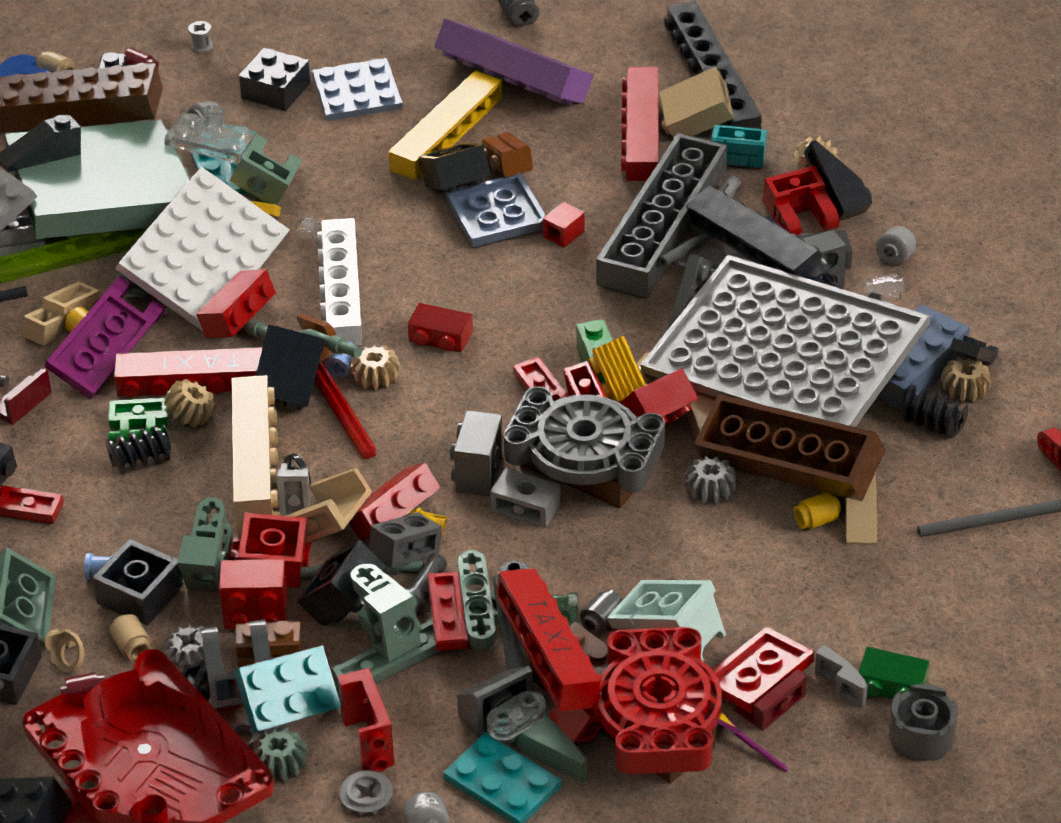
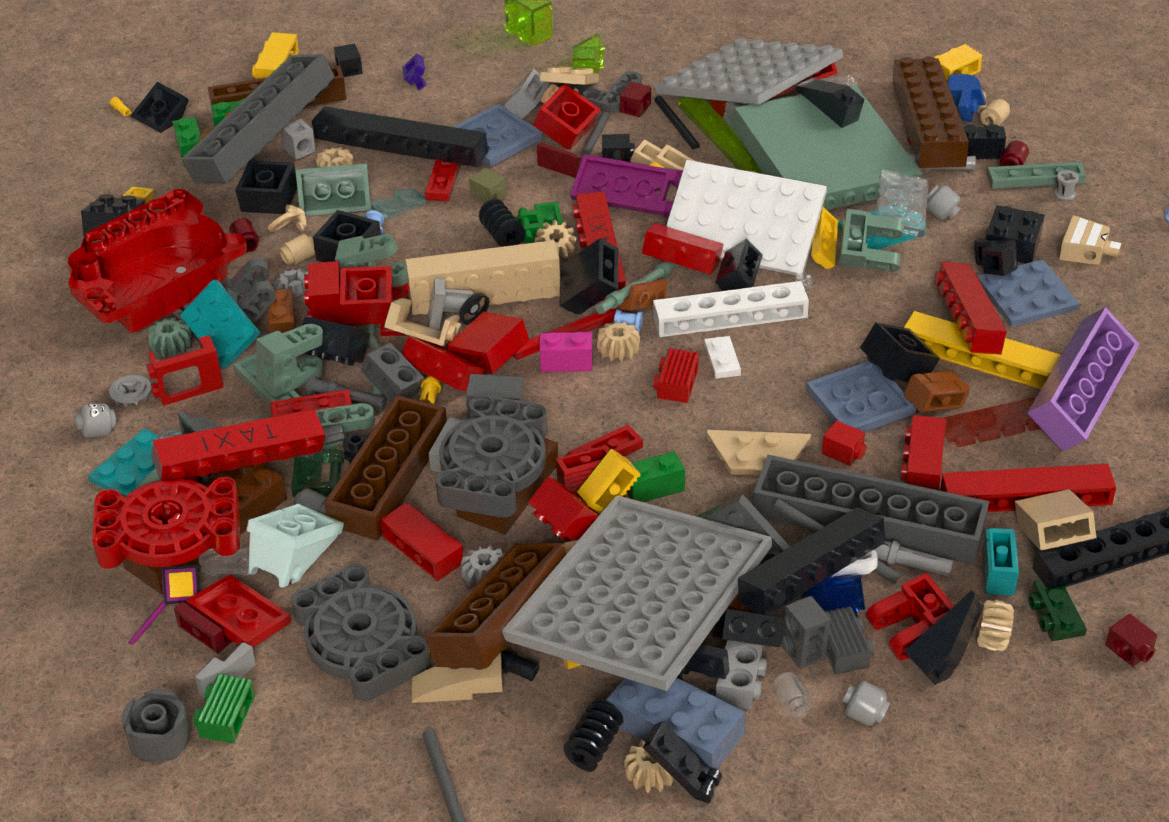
camera: 85 degrees right, 0 degrees up
(19, 349) = (615, 142): none -> black brick
(56, 547) = (401, 203): none -> clear light blue slope
(58, 460) = (487, 186): none -> olive brick
(173, 54) = (1032, 174): none -> sand green plate
(295, 36) = (1087, 242): none -> tan torso
(297, 265) = (739, 267): none -> black brick
(313, 85) = (996, 256): none -> black brick
(361, 448) = (490, 340): none -> red brick
(388, 404) = (566, 351): none -> dark pink brick
(399, 111) = (970, 308): none -> red brick
(407, 298) = (722, 357): none -> white plate
(541, 132) = (988, 423): none -> clear red windscreen
(555, 543) = (386, 466): none -> reddish brown brick
(558, 286) = (747, 450): none -> tan wing
(586, 176) = (924, 452): none -> red brick
(667, 525) = (422, 541): none -> red brick
(790, 131) = (1056, 612): none -> dark green bracket
(792, 573) = (383, 648): none -> dark grey piece
(829, 93) = (1131, 640): none -> dark red brick

